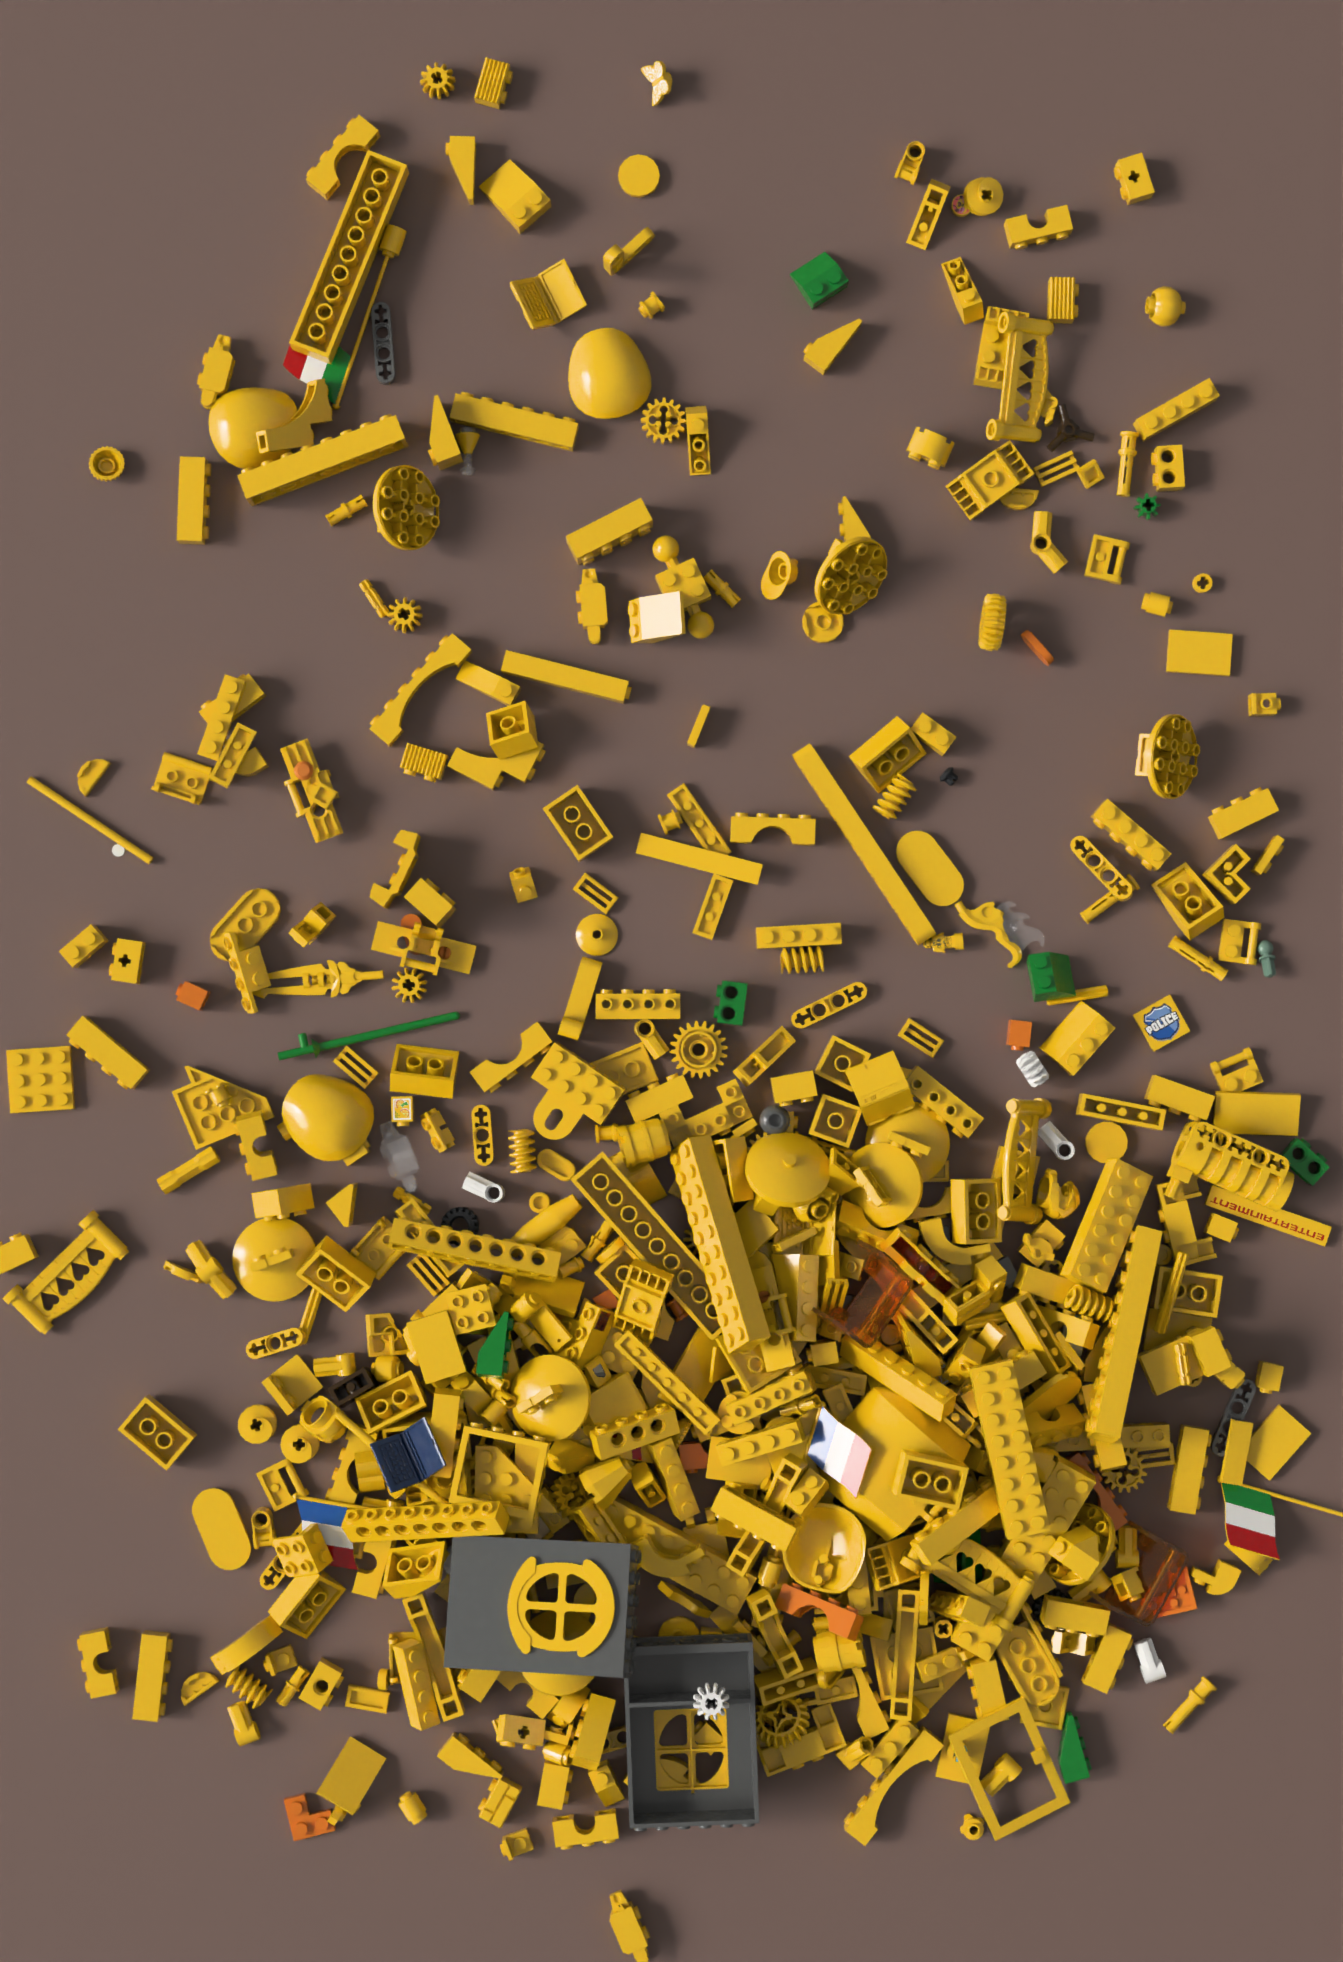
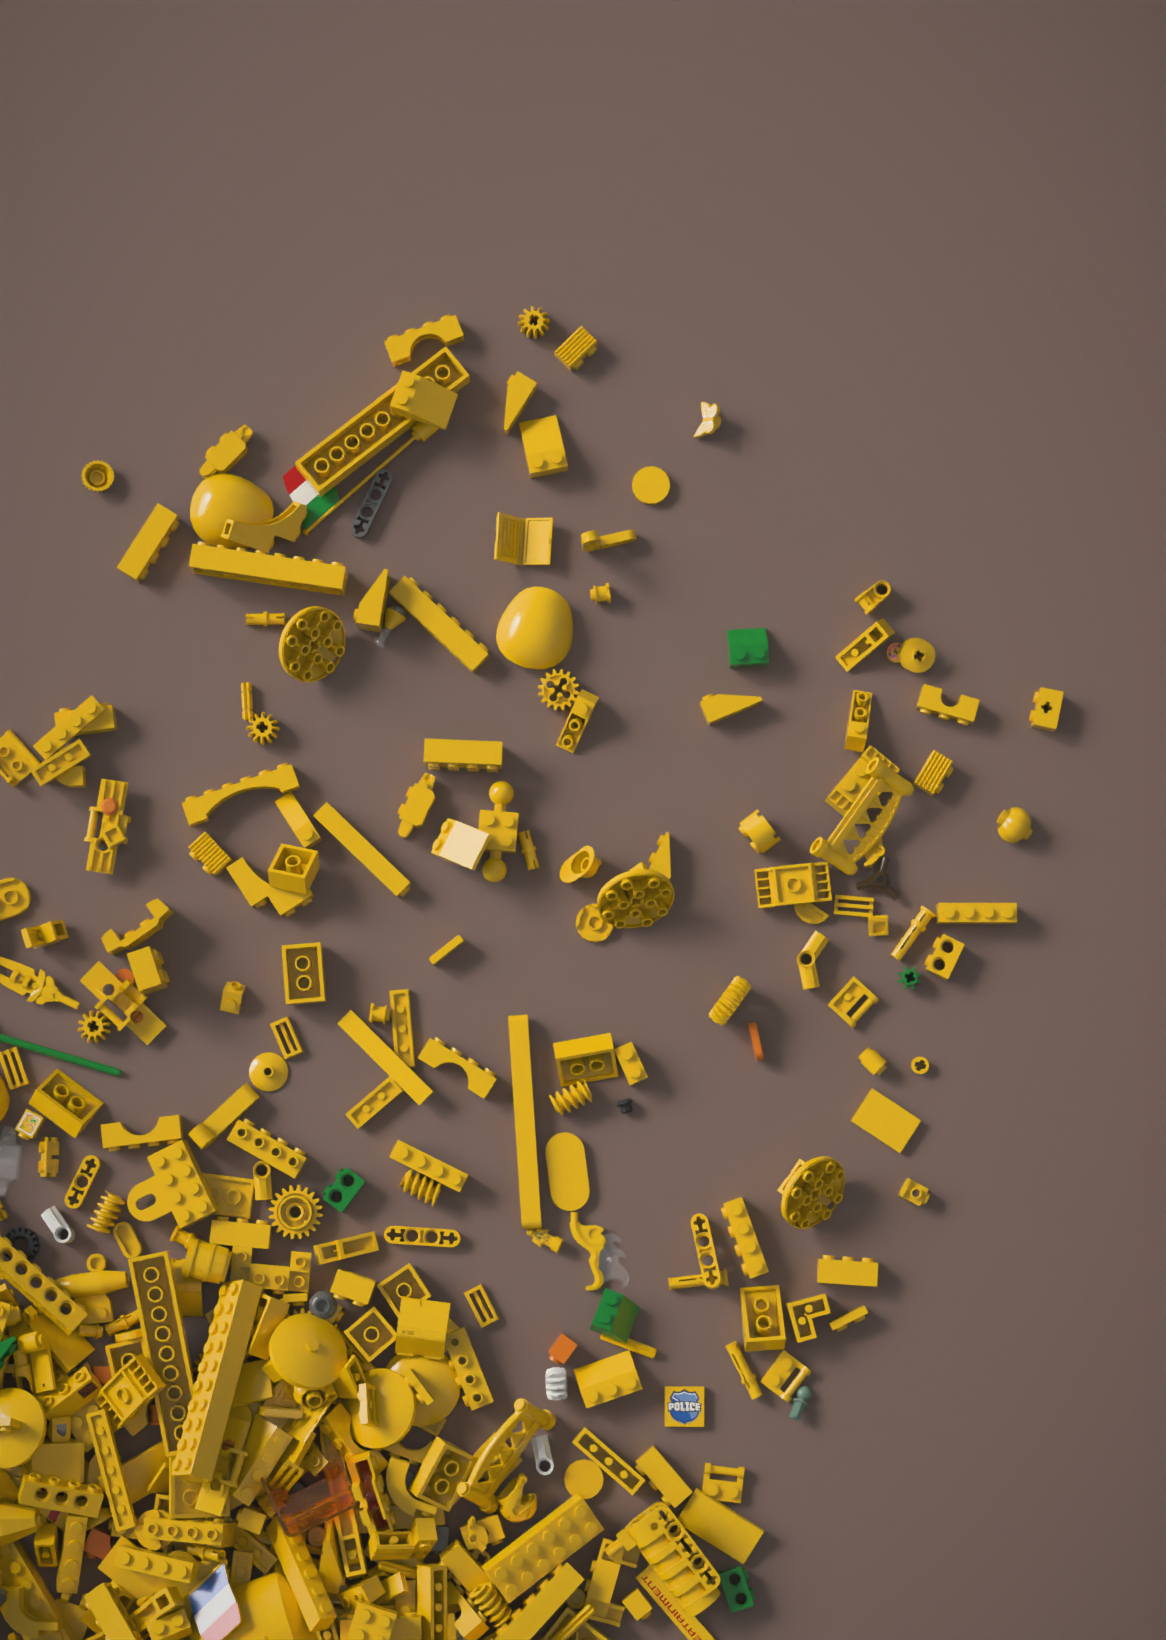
camera: 35 degrees right, 5 degrees down
(377, 213) = (423, 400): none -> yellow slope

